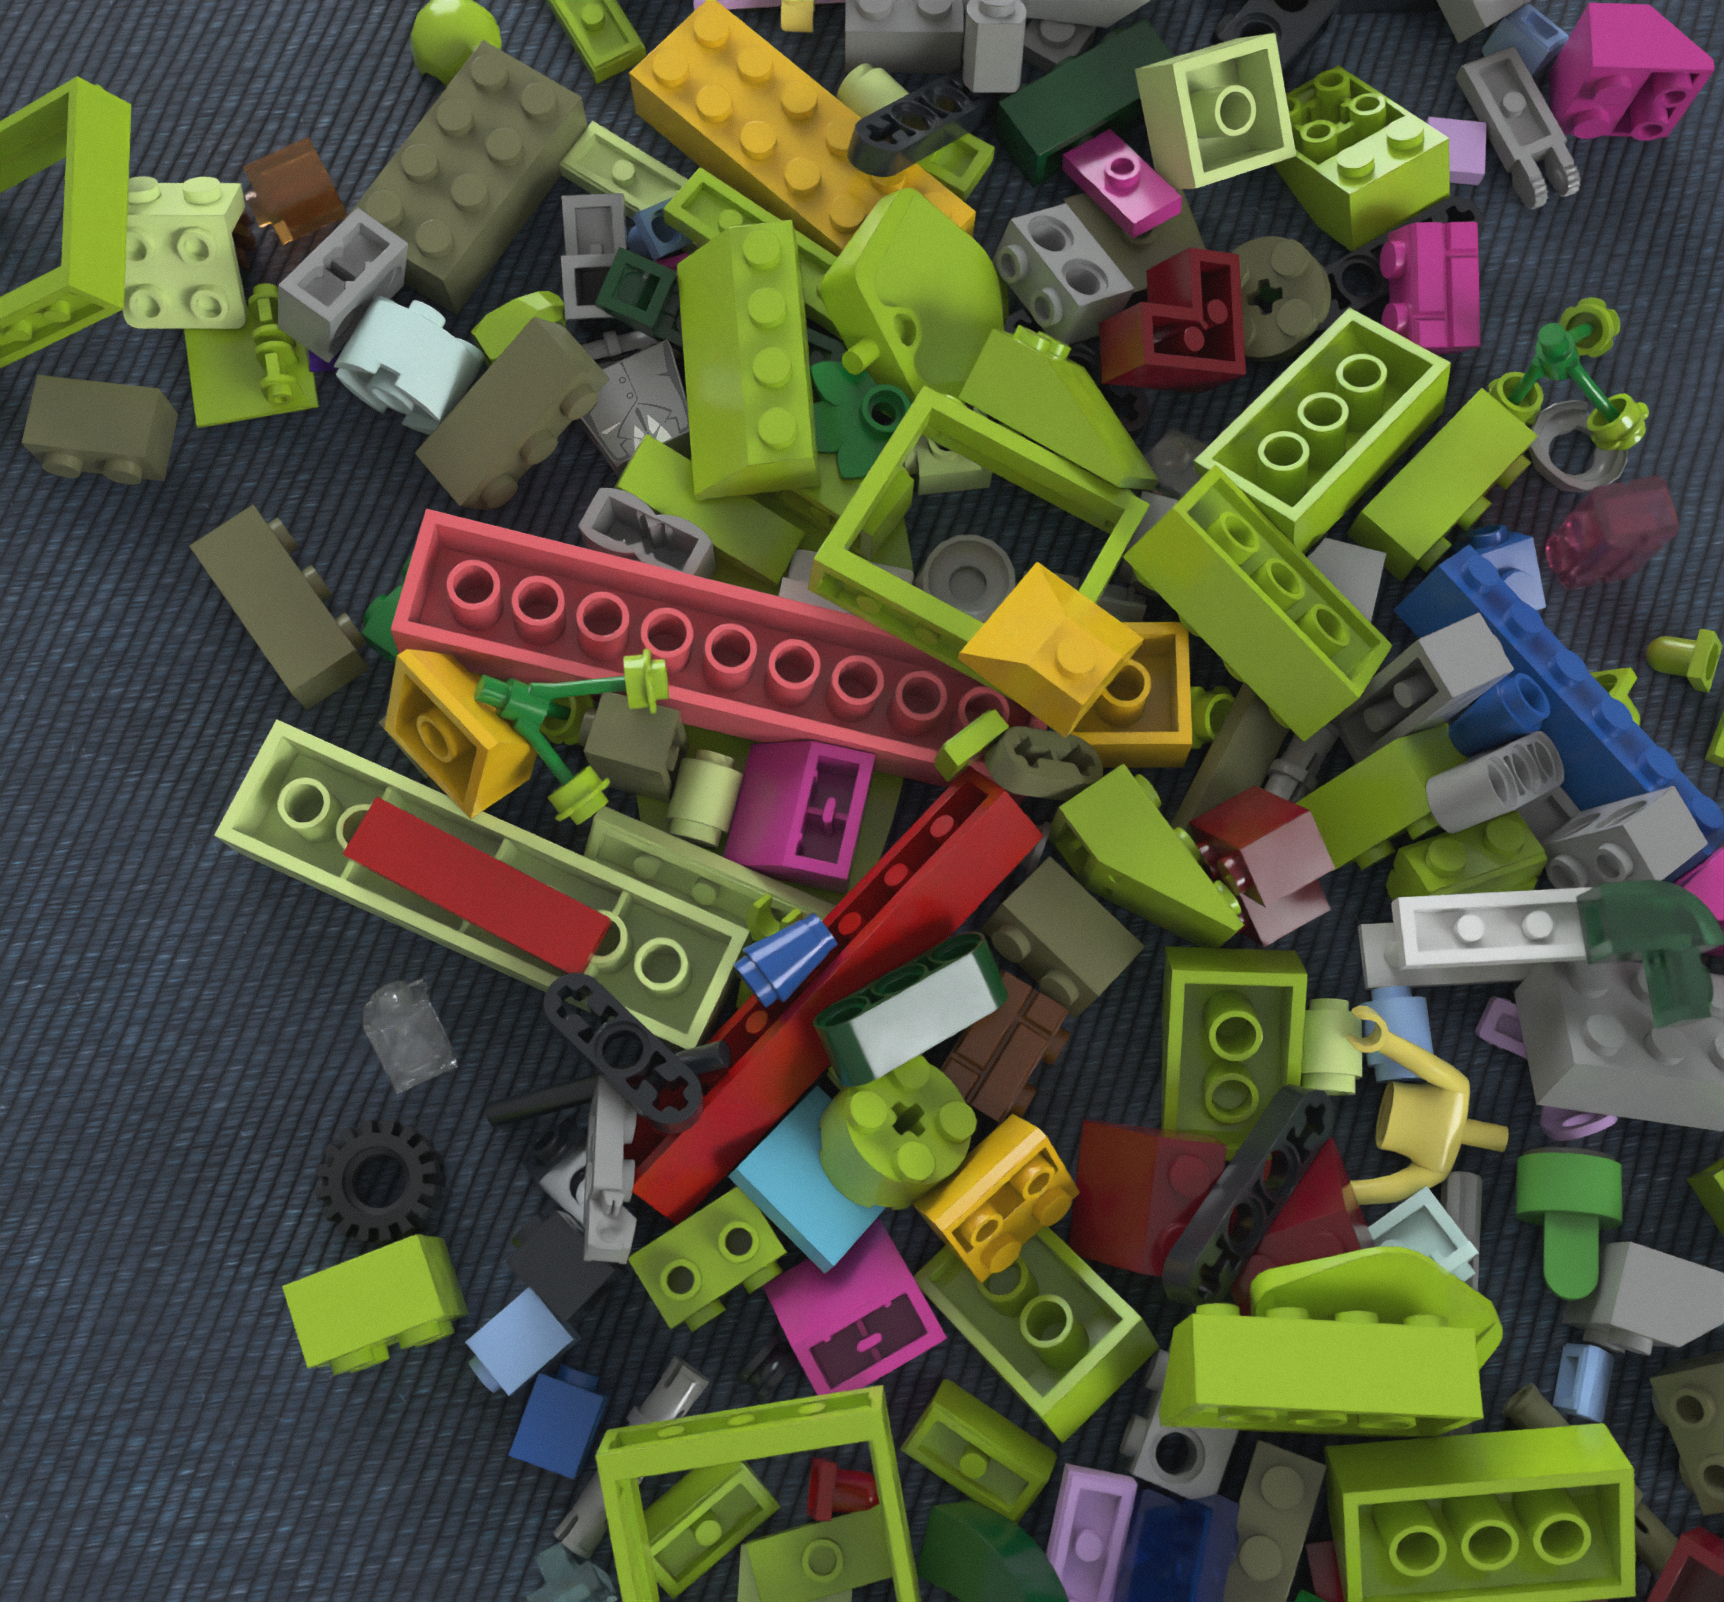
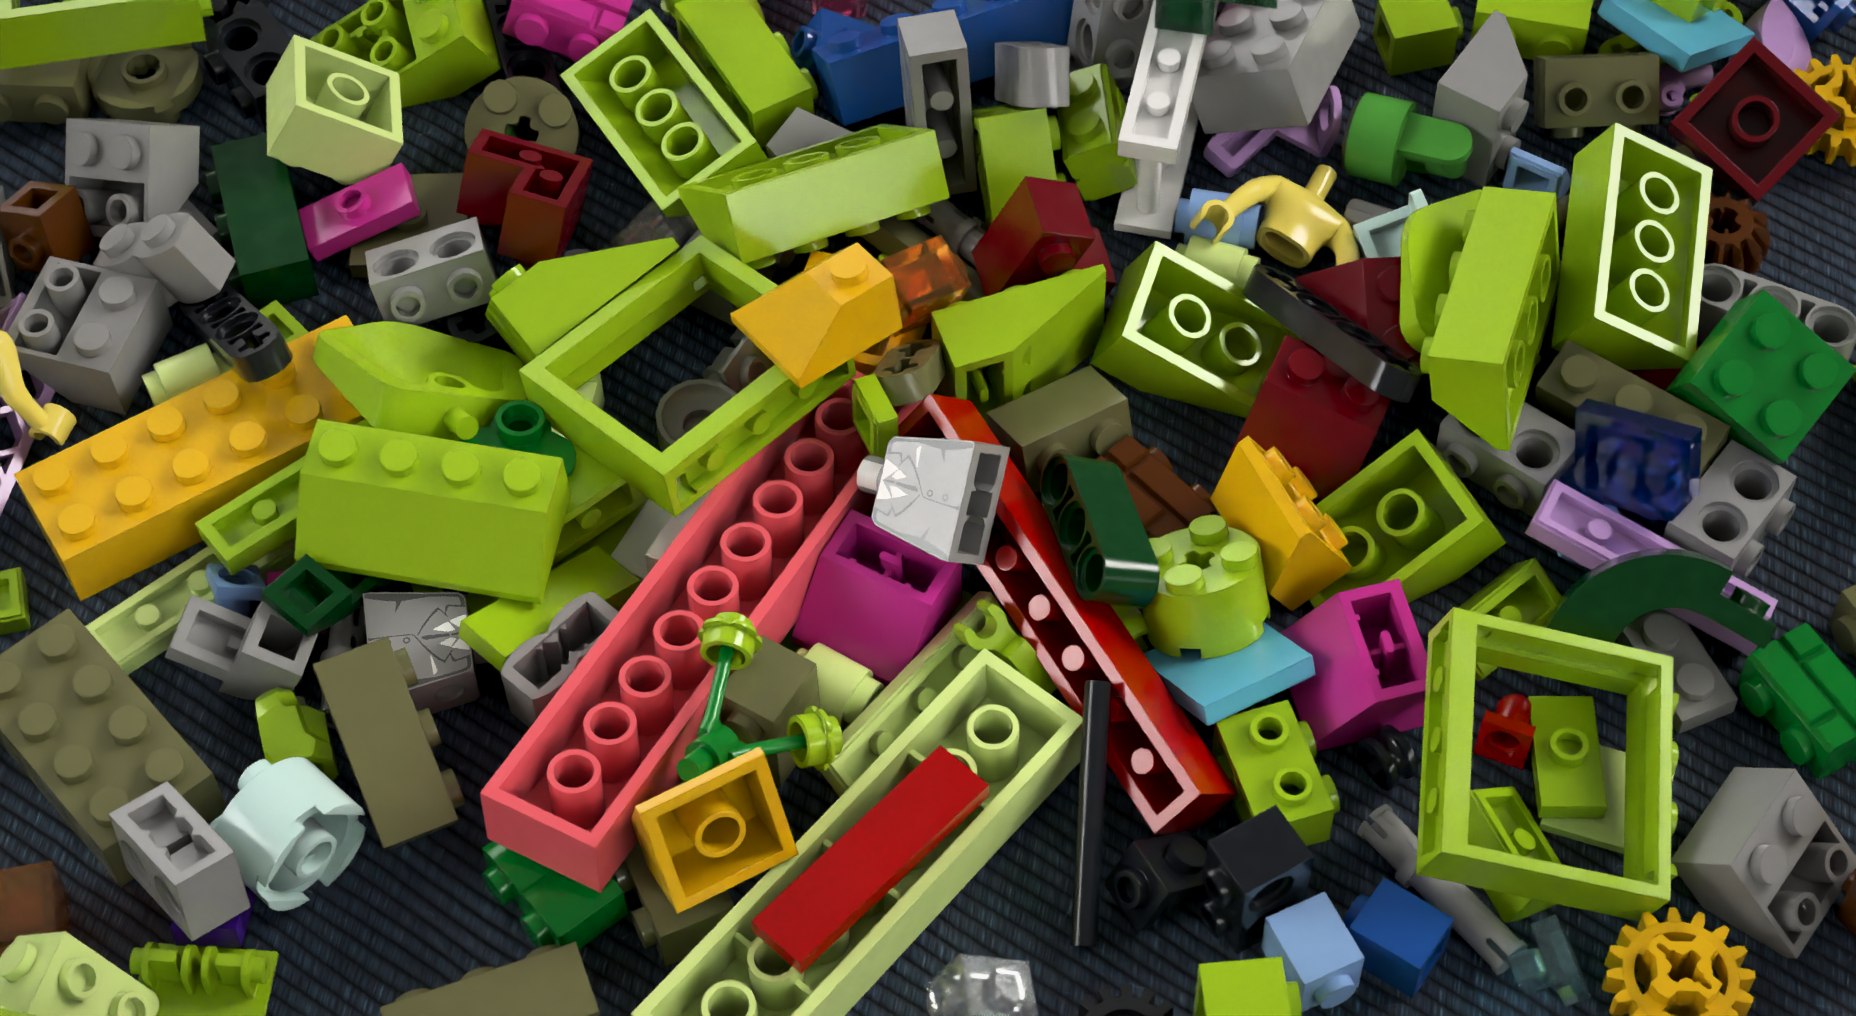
camera: 70 degrees left, 20 degrees down
(608, 1177) = (1177, 798): light grey hinge -> none
(671, 1073) = (1081, 731): black beam -> none
(784, 959) = (1027, 612): blue cone -> none
(890, 833) = (937, 494): none -> torso
(1156, 742) = (926, 280): none -> clear orange brick
(1500, 715) = (982, 64): blue cone -> none

